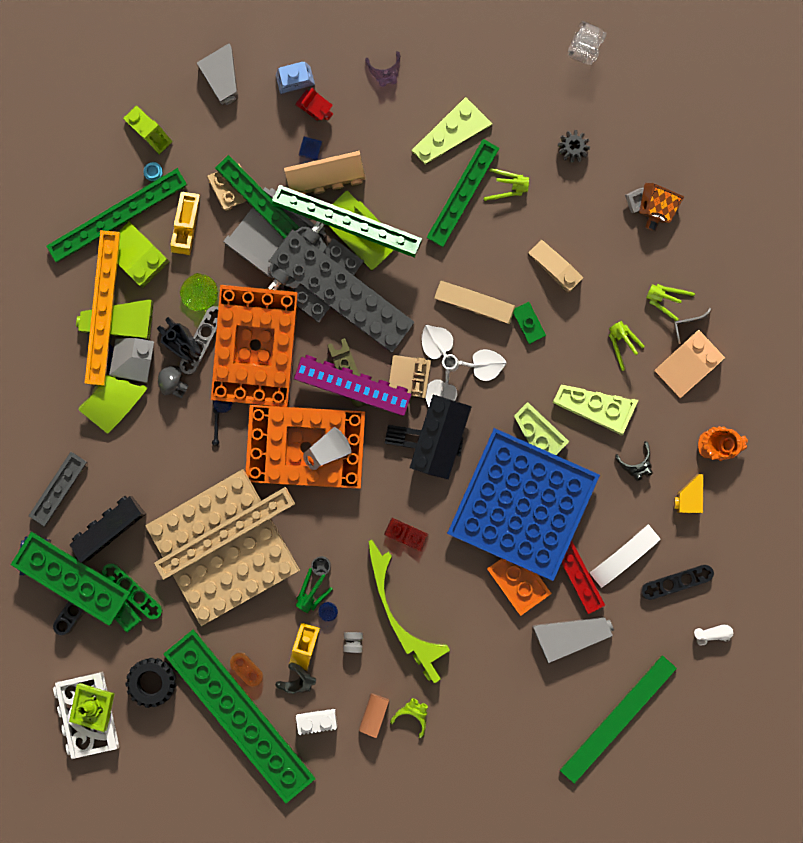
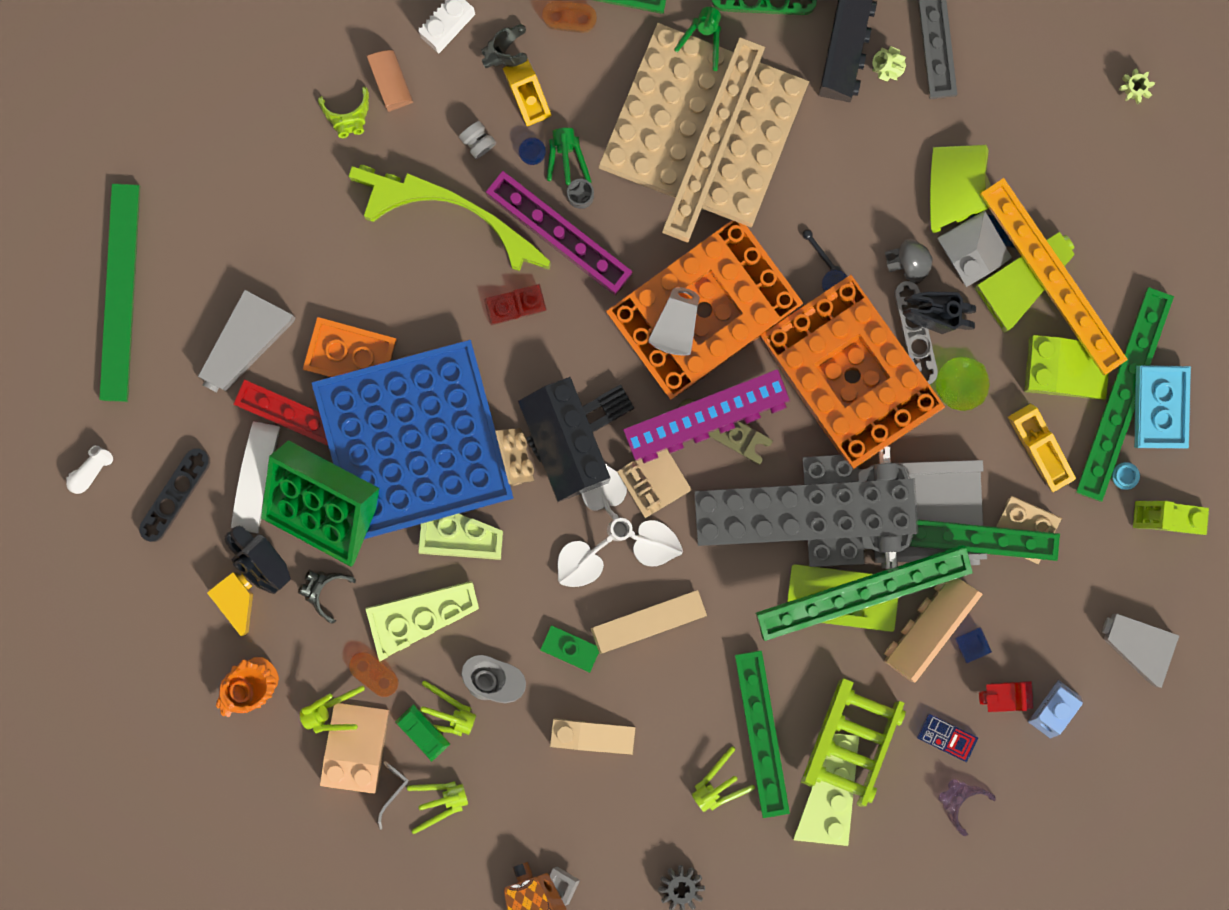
camera: 140 degrees right, 0 degrees up
(93, 499) = (889, 63): none -> yellowish green gear
(102, 191) = (1162, 406): none -> medium azure tile
(174, 602) = (707, 24): none -> green plant
(350, 553) = (559, 233): none -> magenta brick
(365, 111) = (947, 737): none -> clear blue tile
(434, 157) = (835, 721): none -> lime fence
(476, 445) = (514, 455): none -> tan hinge
(584, 339) = (493, 679): none -> light grey piece
(602, 512) = (318, 502): none -> green slope
(644, 396) = (374, 673): none -> clear orange plate
(645, 342) = (422, 732): none -> green tile
(660, 508) = (257, 560): none -> black hinge
(695, 398) = (317, 713): none -> lime plant

